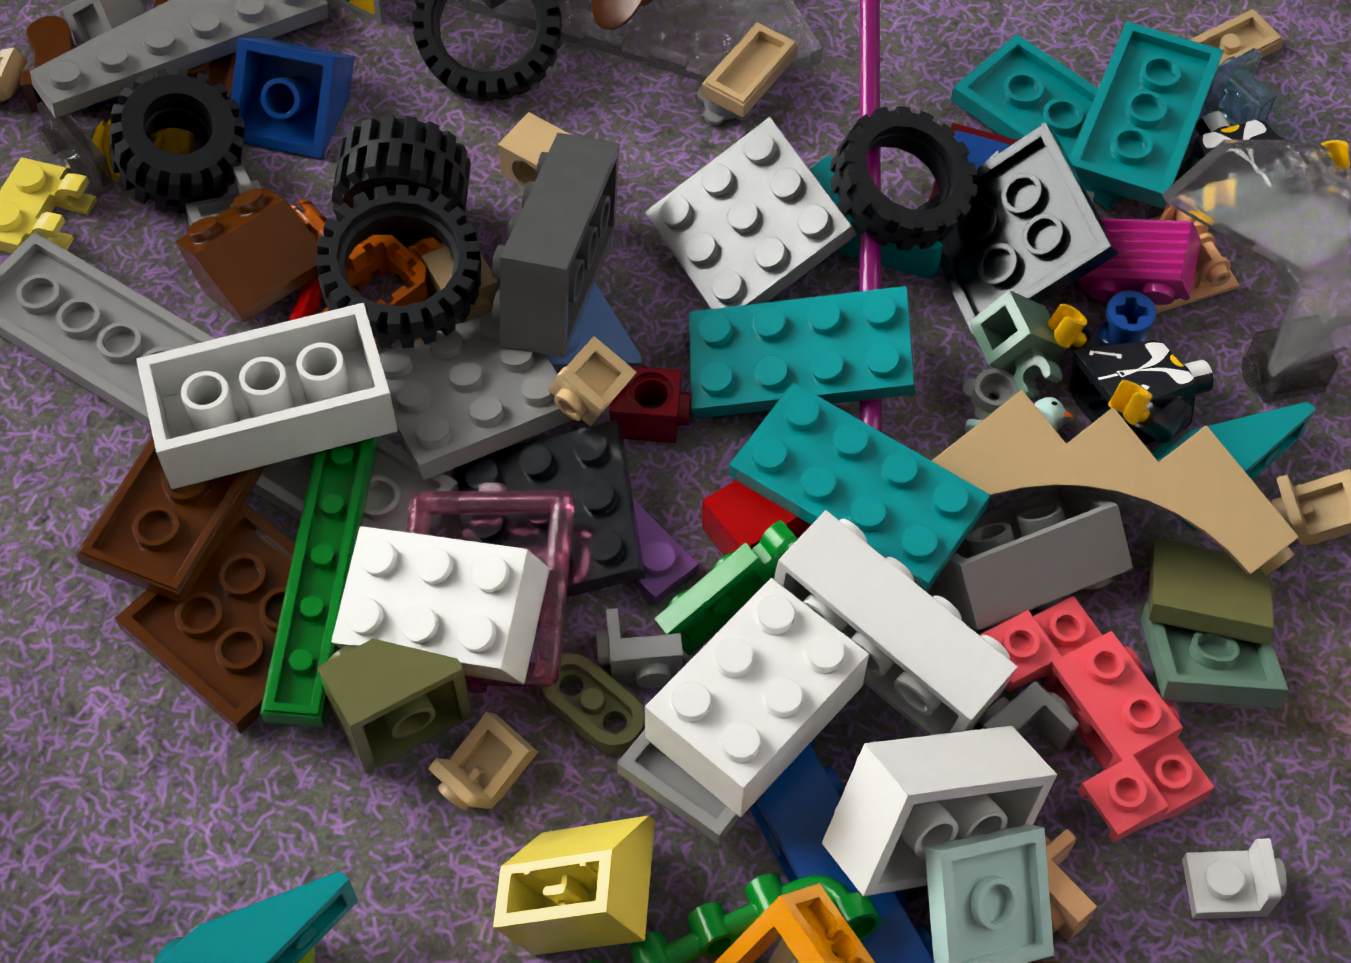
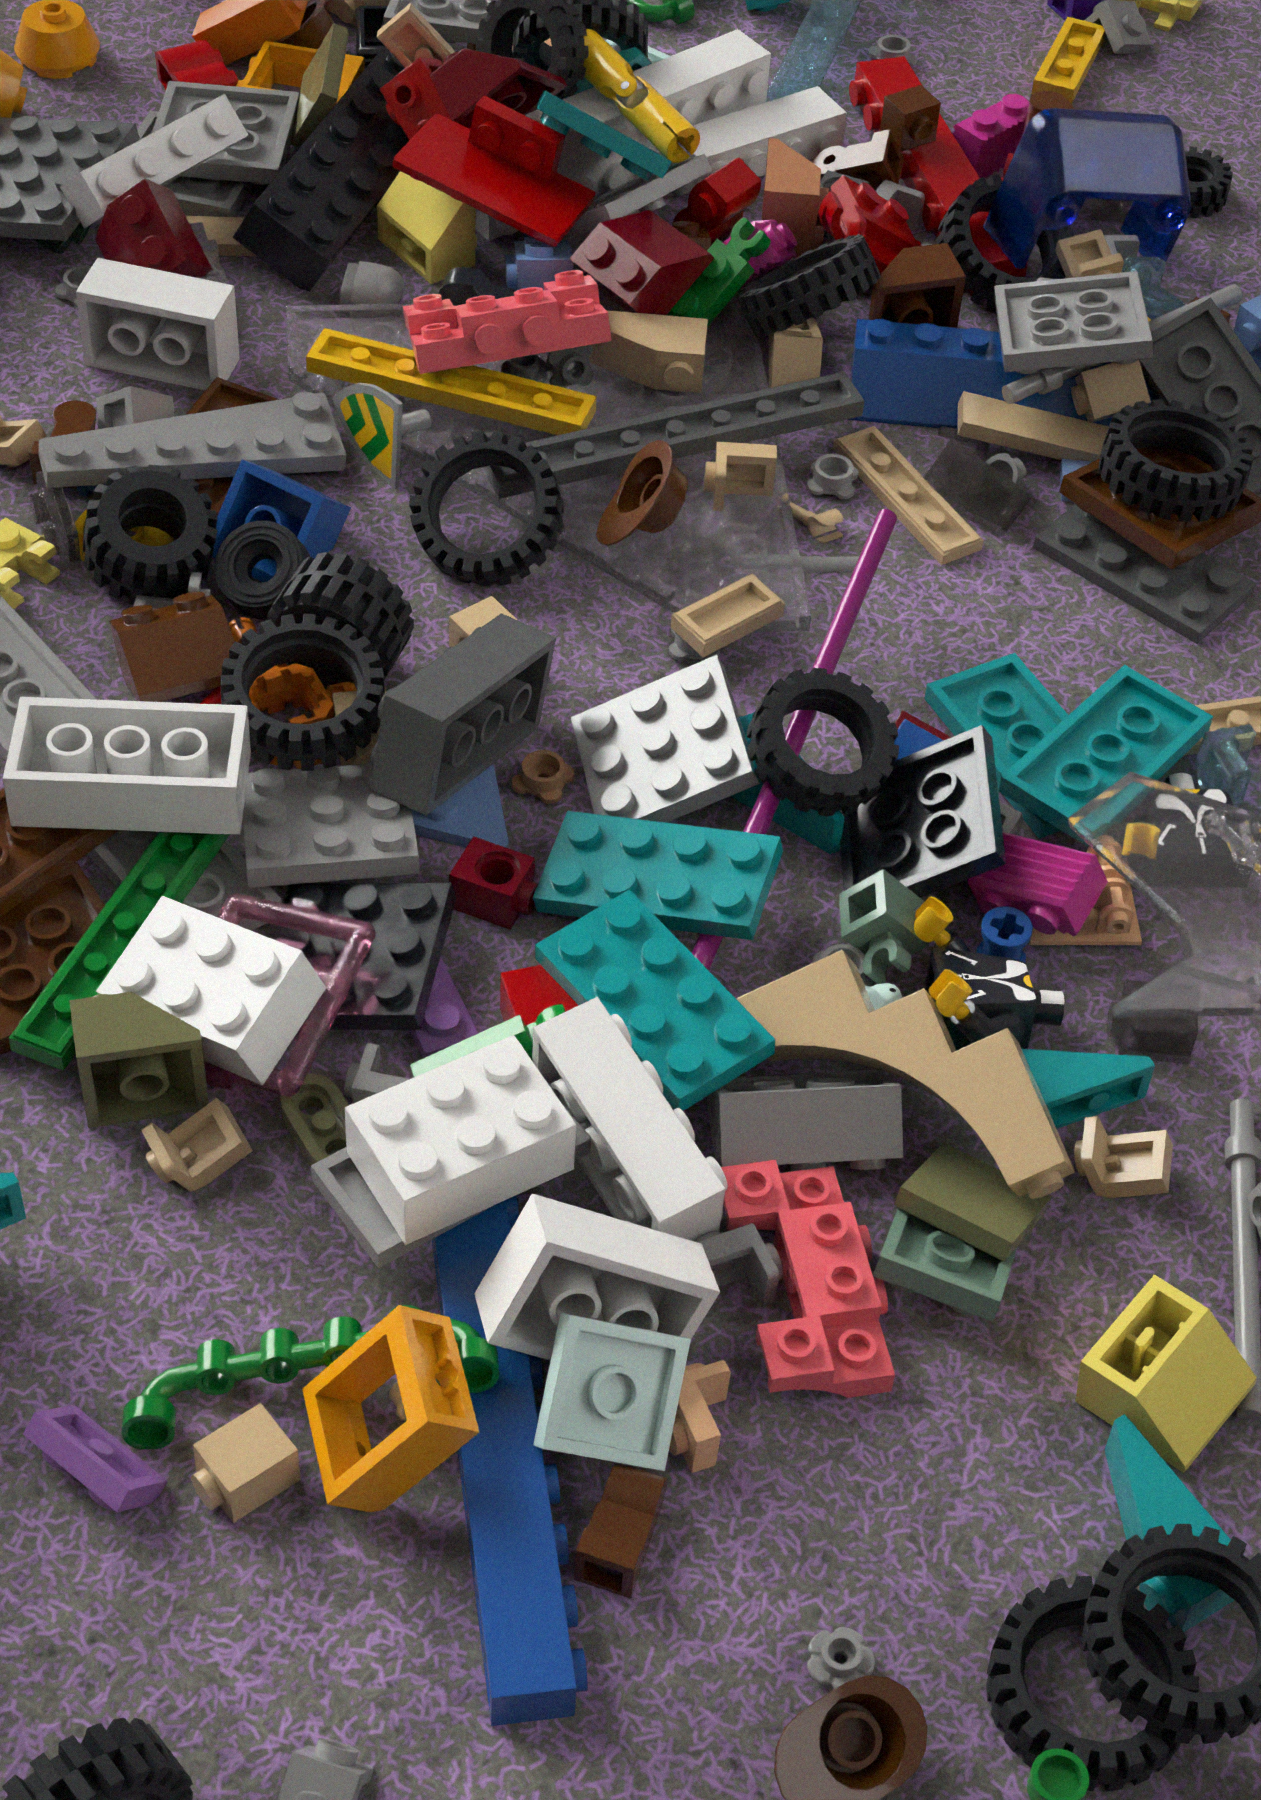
camera: 15 degrees right, 10 degrees down
(275, 128) = (240, 554): none -> black tyre
(578, 887) = (231, 1273): light yellow slope -> none
(590, 382) = (437, 839): tan bracket -> none
(644, 267) = (543, 764): none -> medium nougat plate
(1234, 882) = (877, 1468): white bracket -> none

